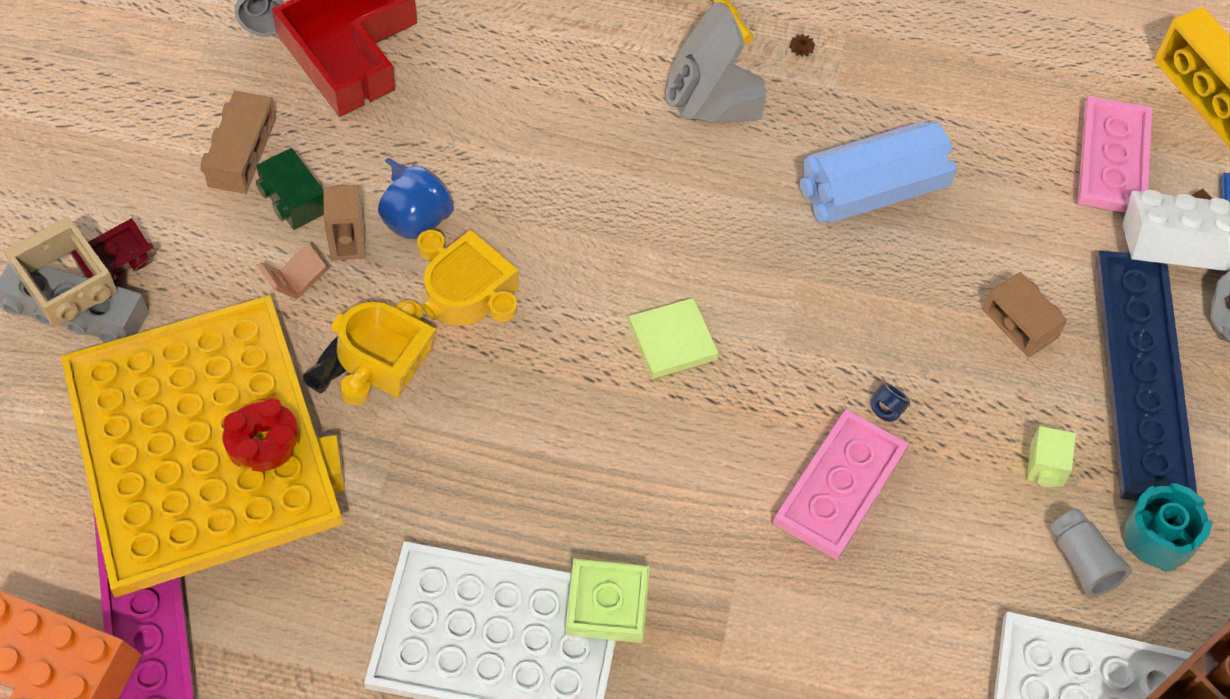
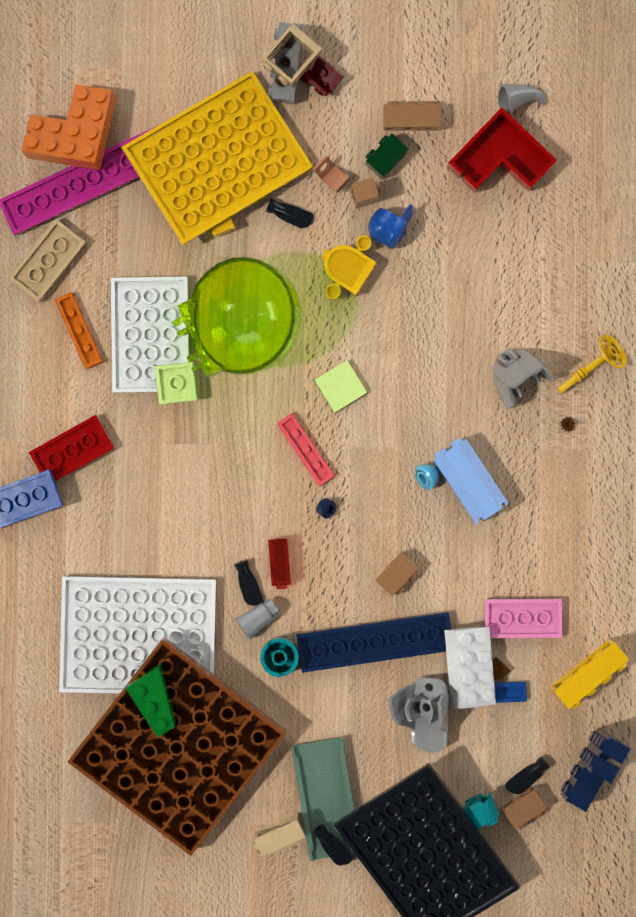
camera: 85 degrees right, 30 degrees up
(255, 418) = (219, 201): red plate -> none
(381, 347) = (294, 234): yellow piece -> none
(515, 424) = (241, 317): none -> clear neon green windscreen
(776, 416) = (305, 449): none -> coral tile
(840, 484) = (270, 488): bright pink plate -> none
(858, 237) = (427, 475): none -> medium azure brick
(984, 494) = (279, 563): none -> clear red brick
(1016, 561) = (248, 584): none -> black piece
(1051, 457) = (309, 595): yellowish green brick -> none

